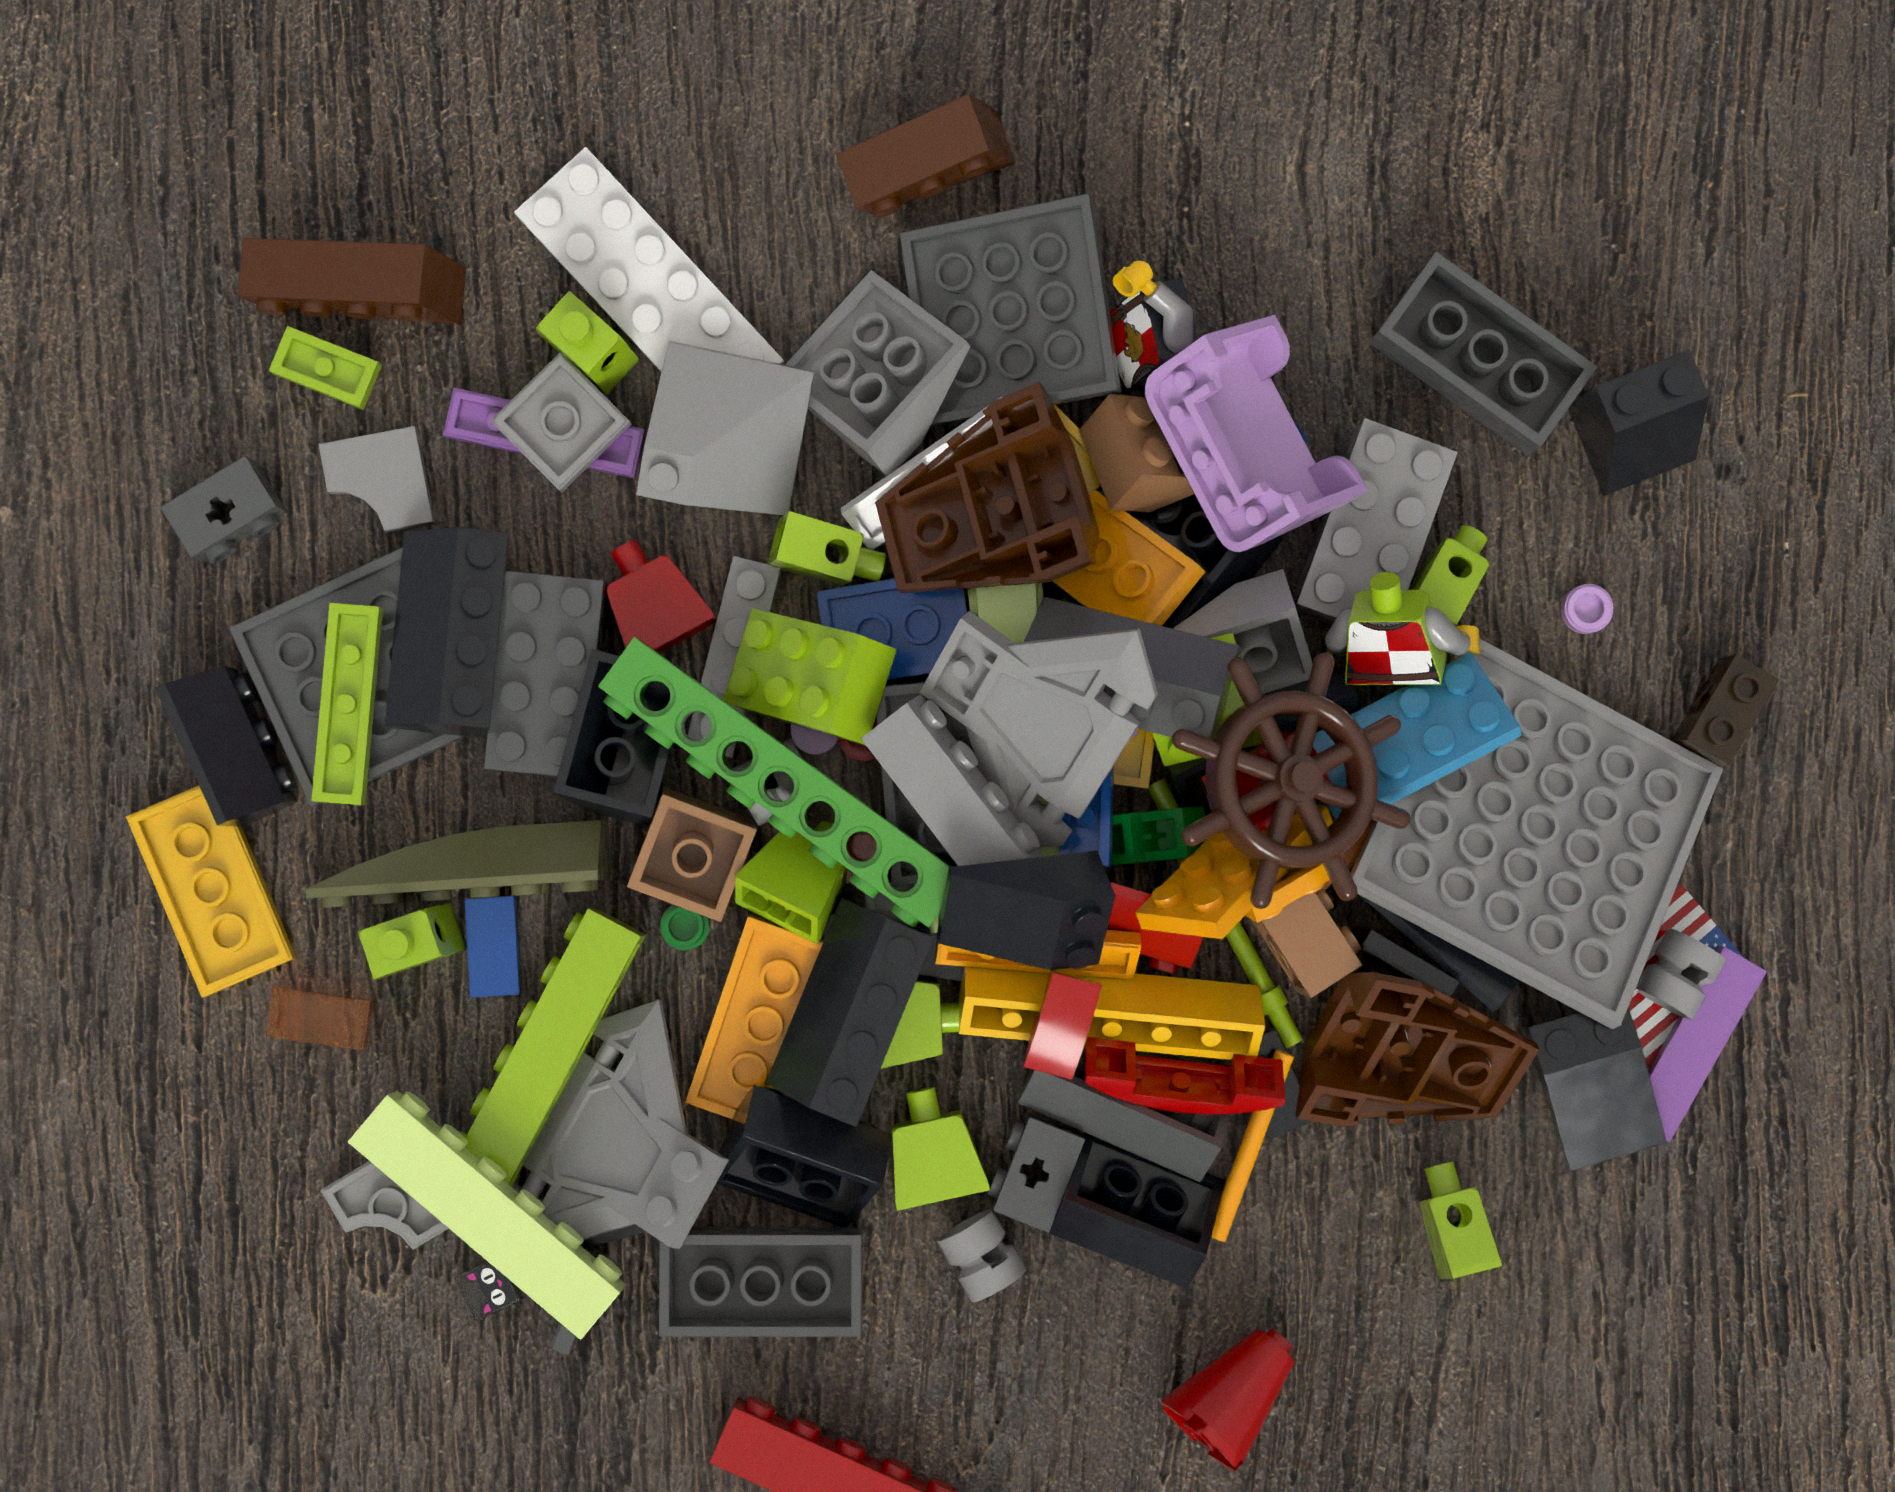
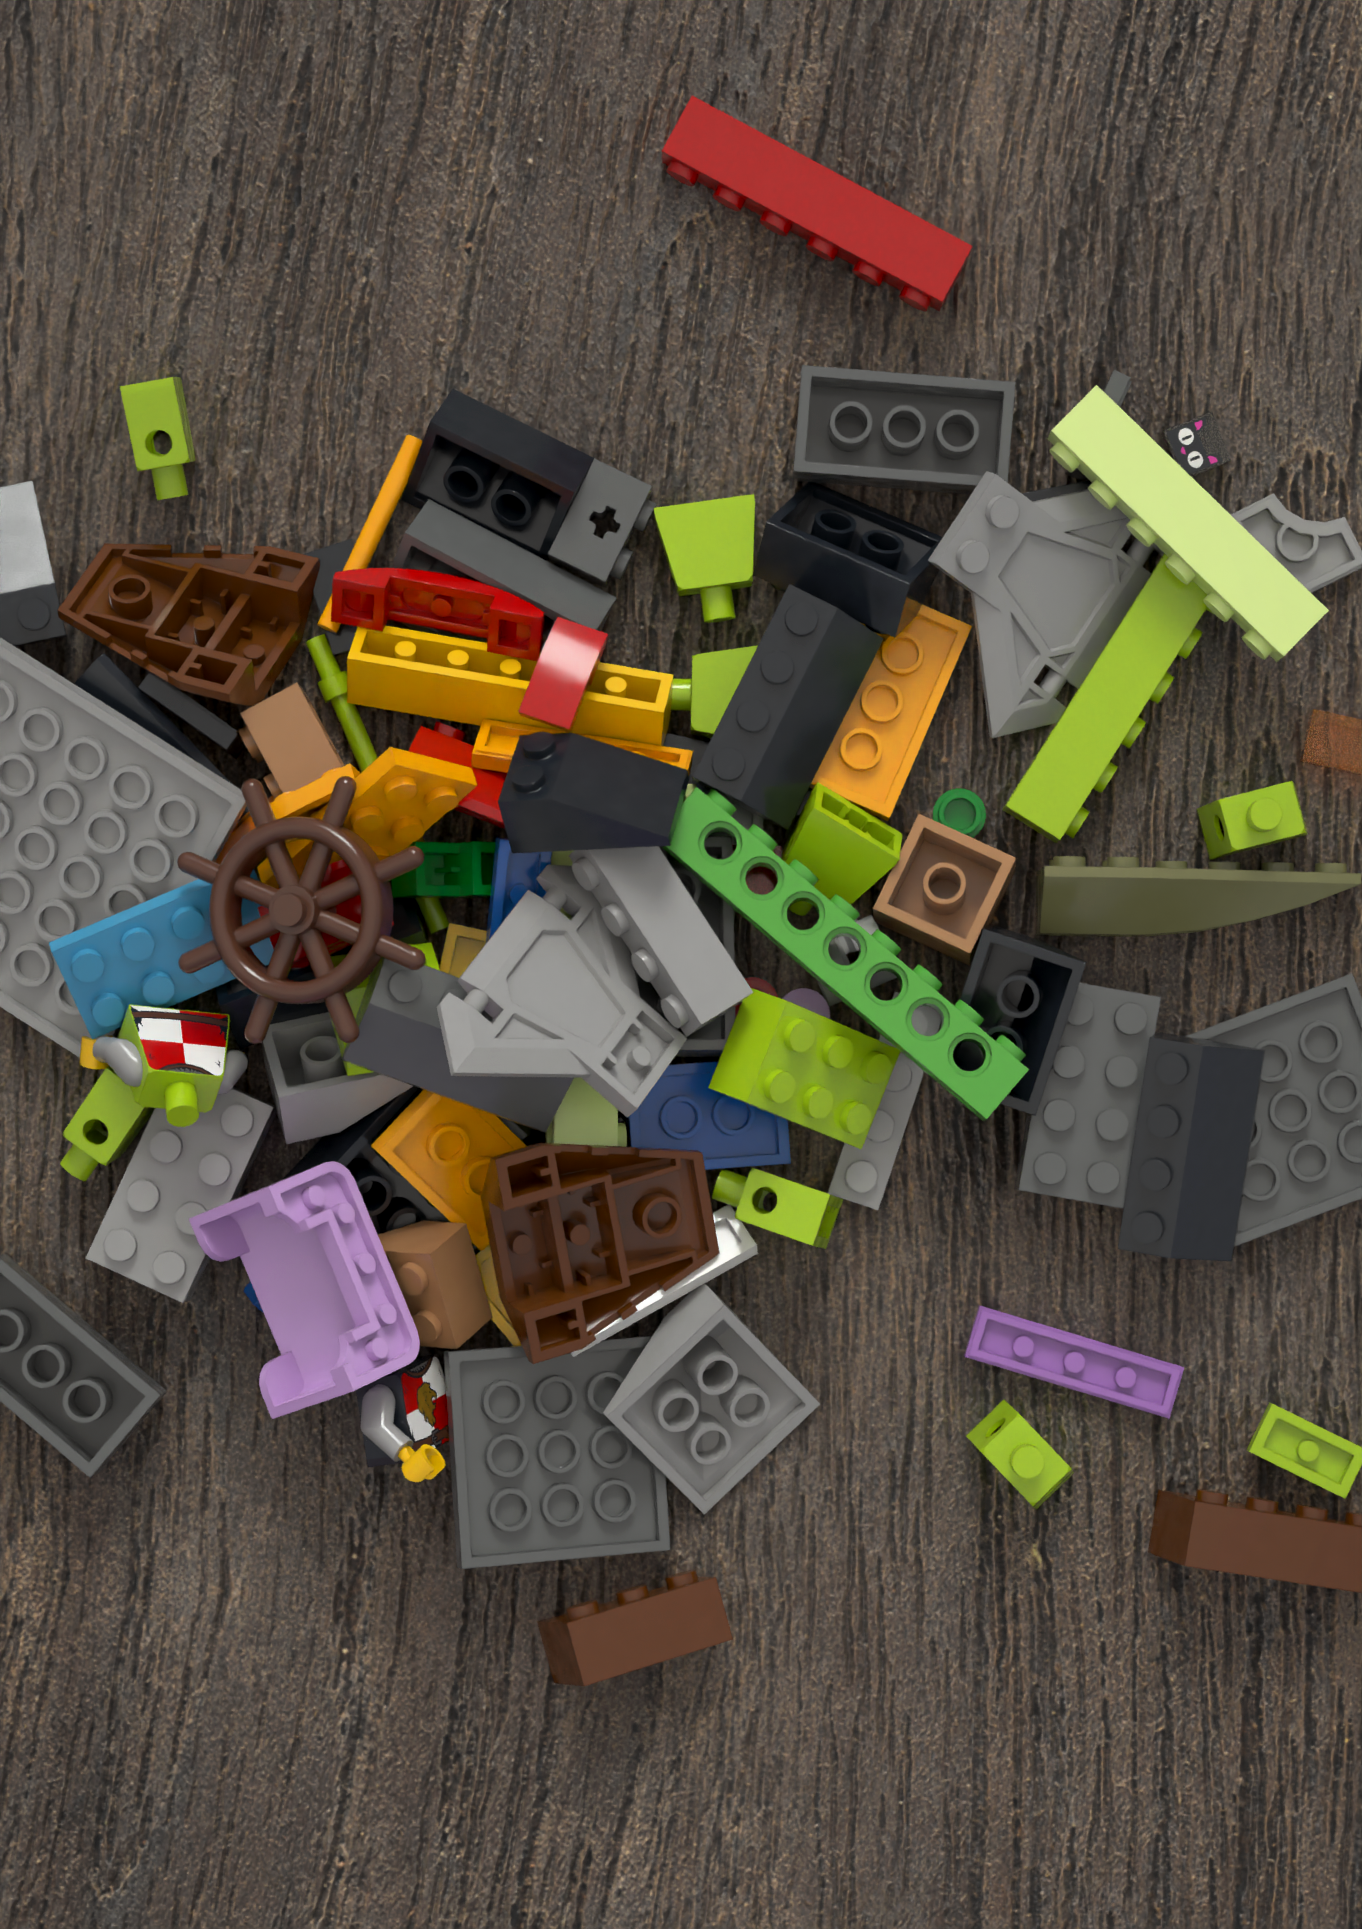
camera: 170 degrees left, 0 degrees up
(347, 704) = (1304, 1078): lime plate -> none
(385, 472) = (1250, 1331): light grey tile -> none
(493, 946) = (1166, 808): blue tile -> none
(561, 422) = (1053, 1368): light grey plate -> none
(634, 266) = (948, 1513): white plate -> none
(655, 600) = (966, 1166): red torso -> none
(725, 431) = (876, 1344): light grey slope -> none
(982, 1237) = (667, 440): light grey wheel -> none
(1232, 1396) = (413, 272): red cone -> none

